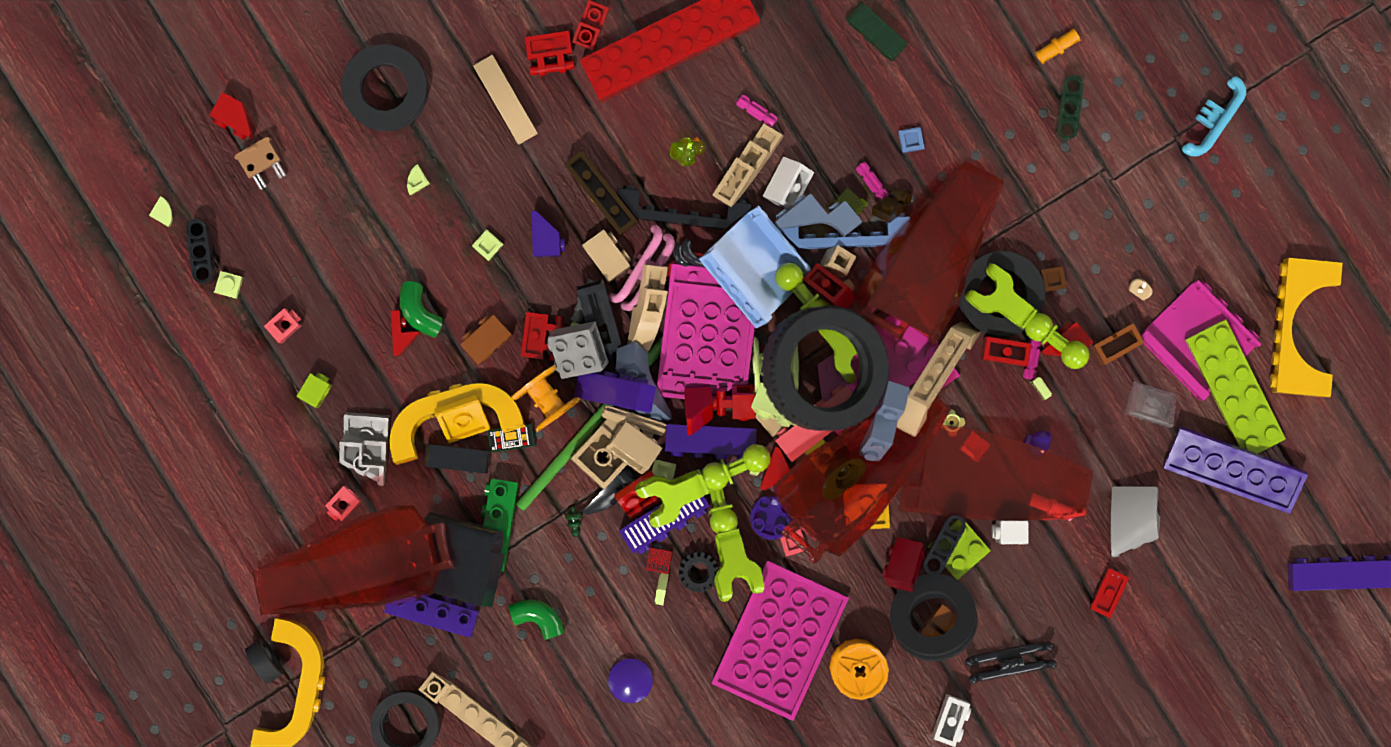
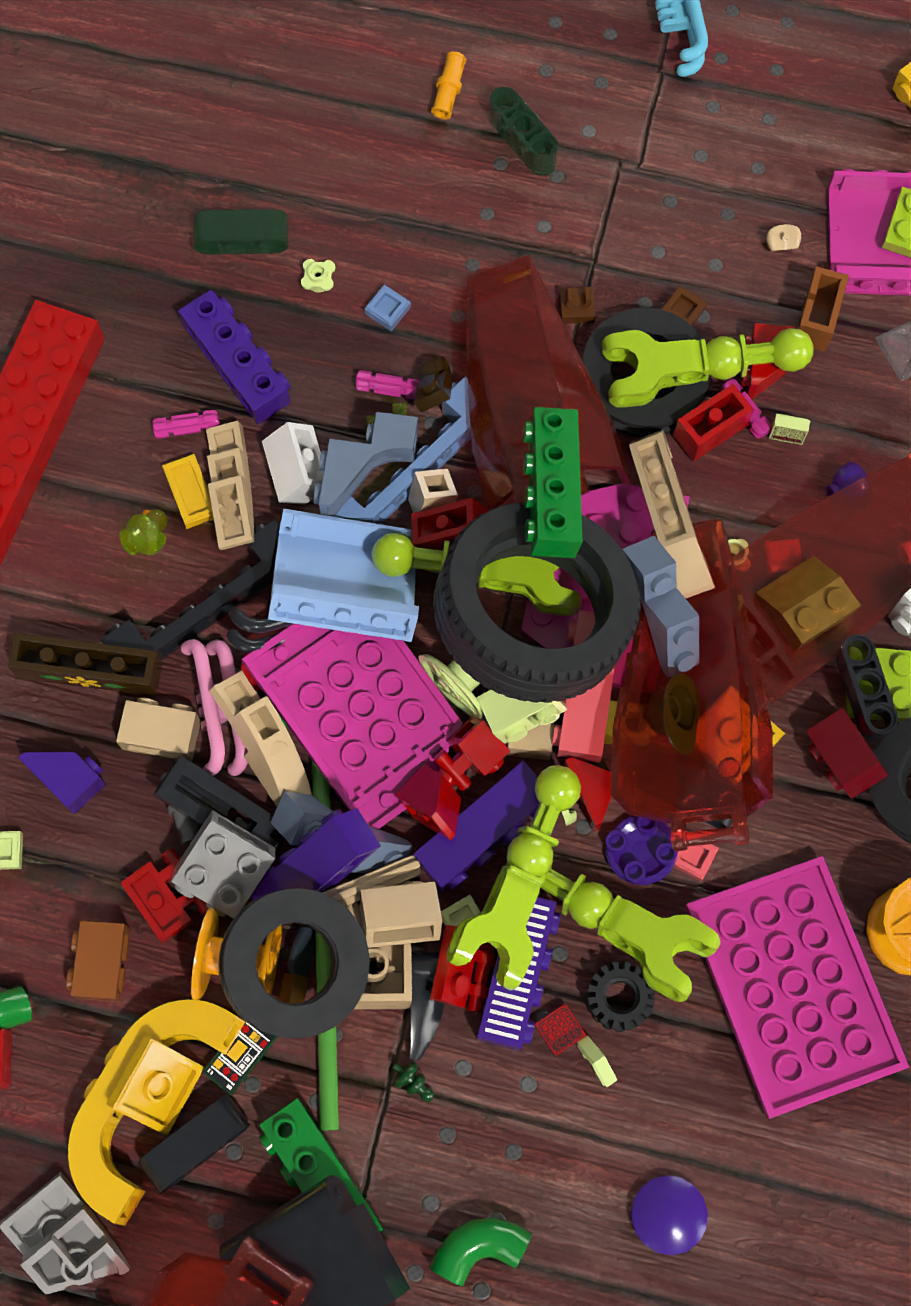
camera: 45 degrees left, 15 degrees down
(562, 429) = (295, 982): none -> piece
(573, 458) = (347, 972): none -> black tyre
(728, 147) = (189, 490): none -> yellow tile
(811, 98) = (235, 356): none -> dark purple brick
(883, 324) = (553, 483): none -> green brick
(899, 91) = (321, 283): none -> yellowish green plate
(959, 479) = (807, 602): none -> pearl gold slope
(1004, 226) = (577, 305): none -> reddish brown tile

